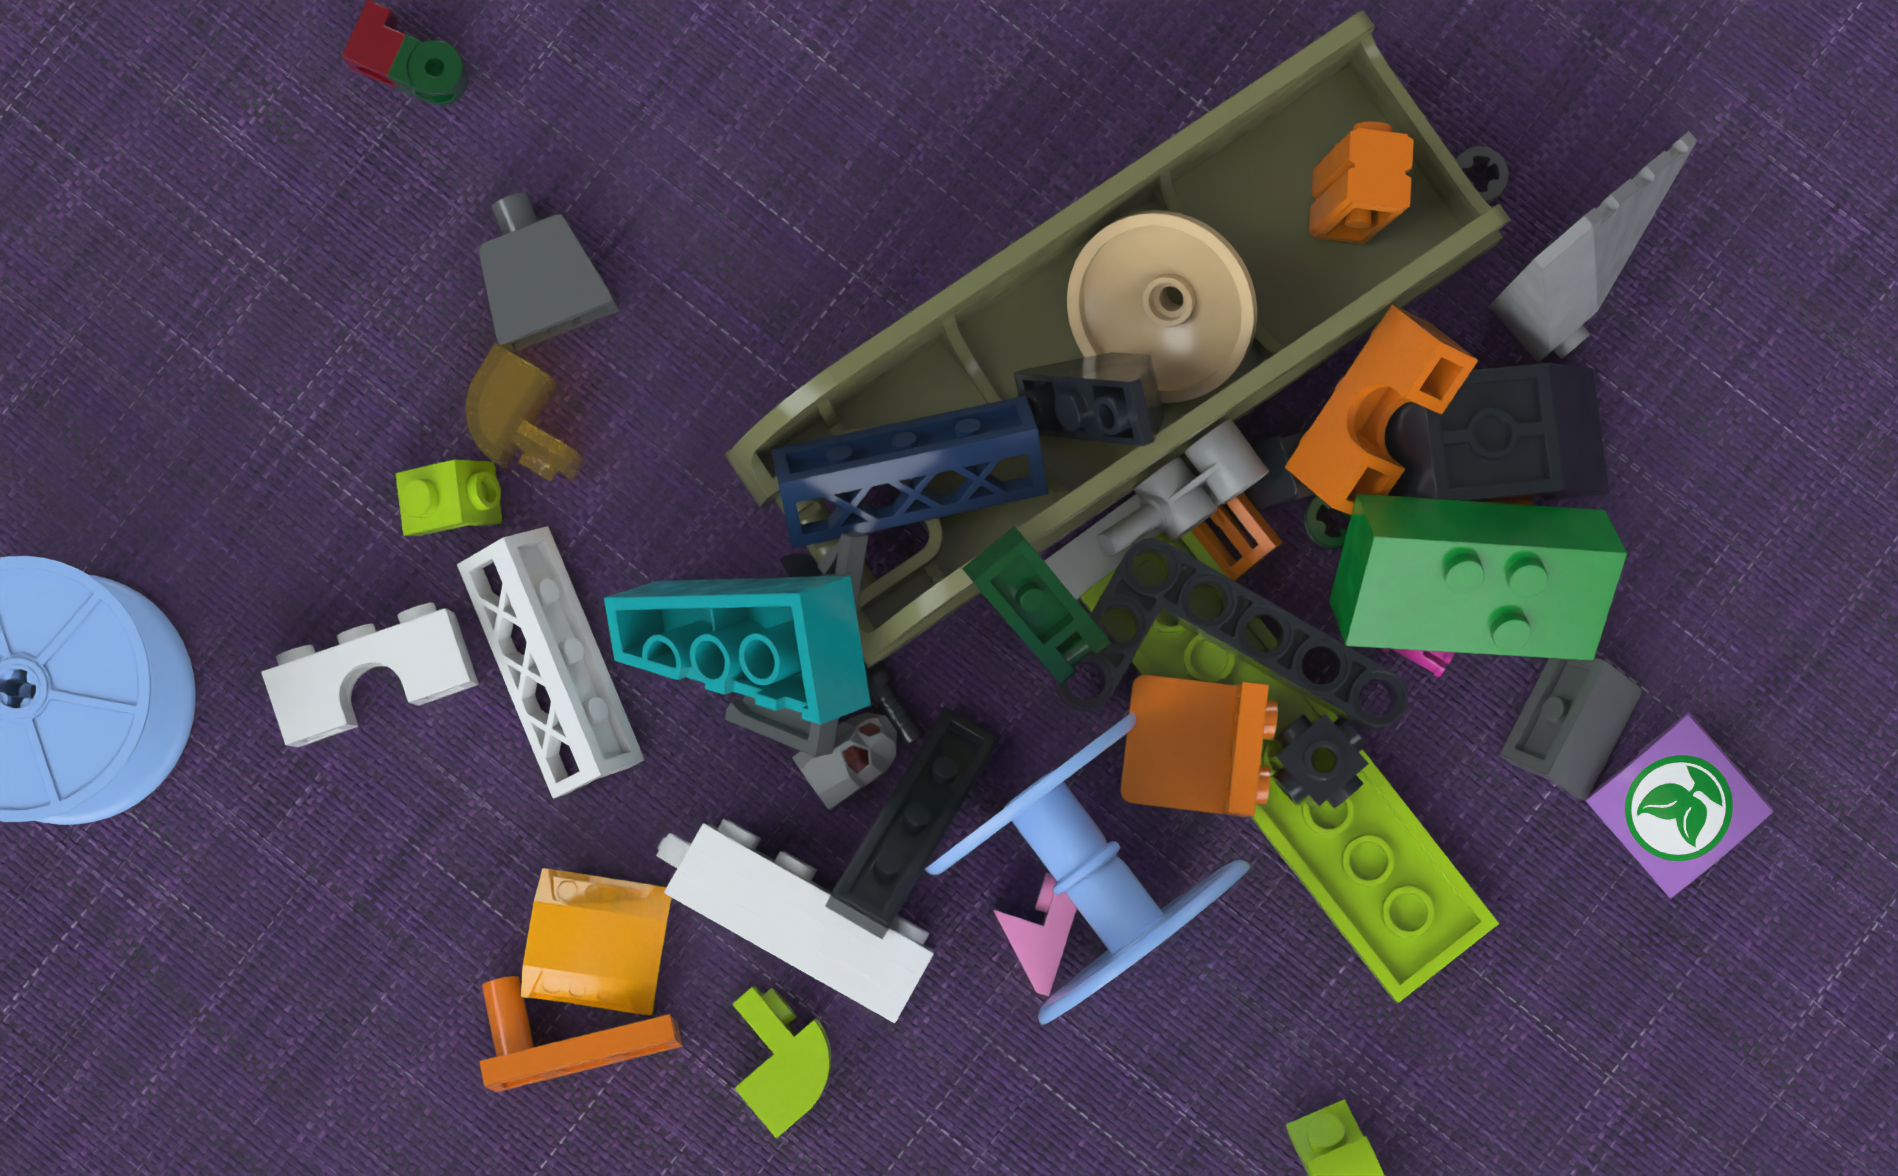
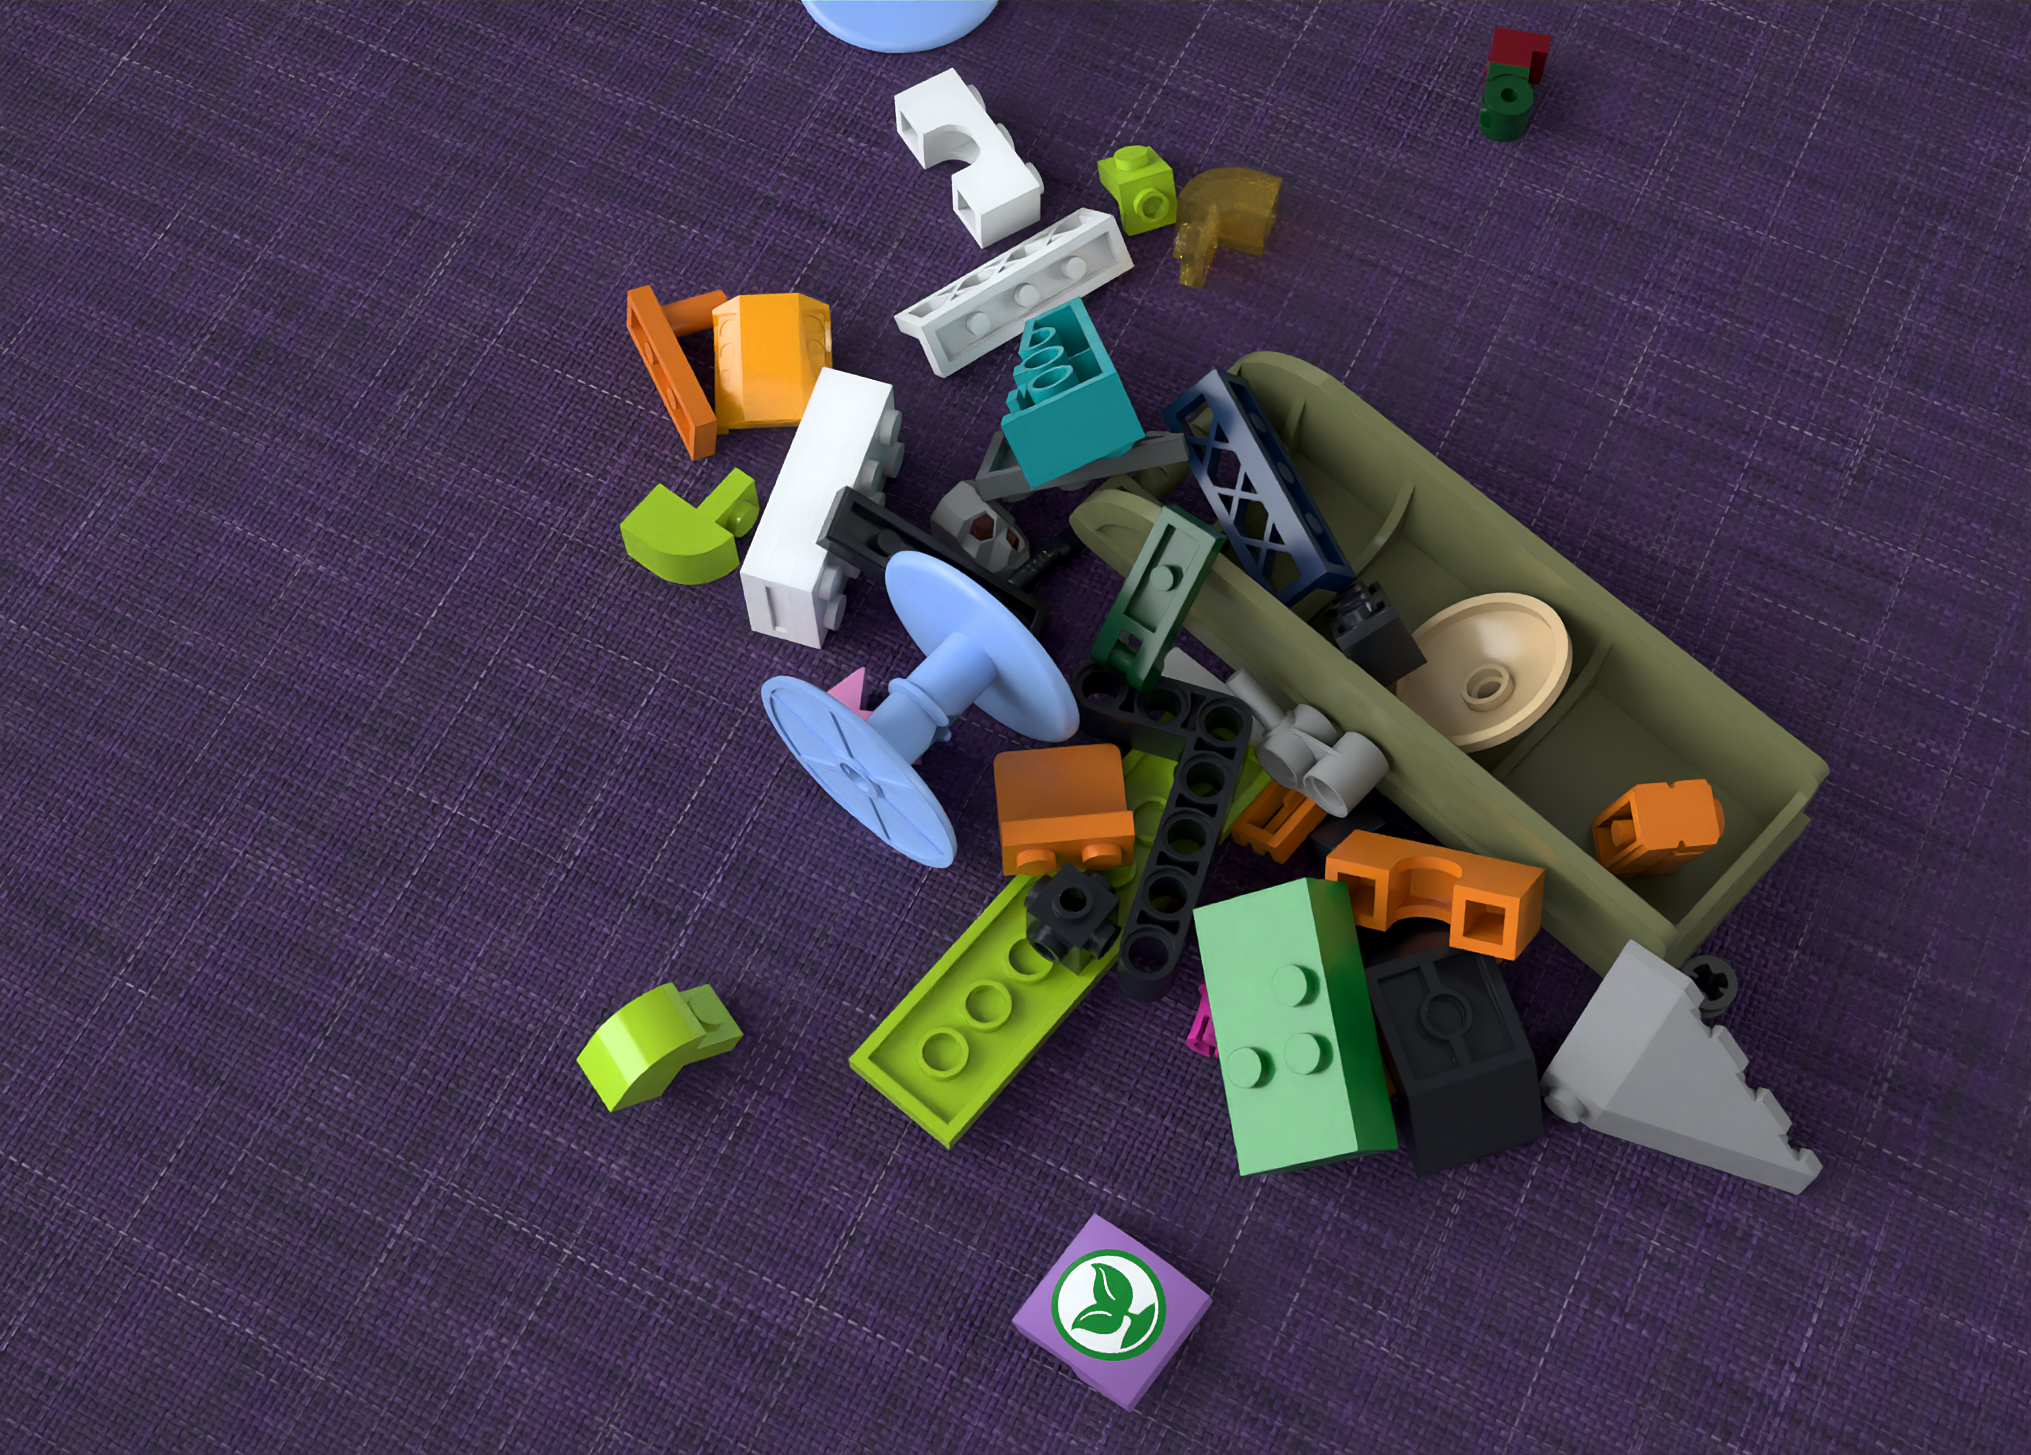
camera: 80 degrees right, 20 degrees down
(538, 277) = (1349, 212): dark grey torso -> none
(1572, 723) = (1171, 1188): dark grey panel -> none

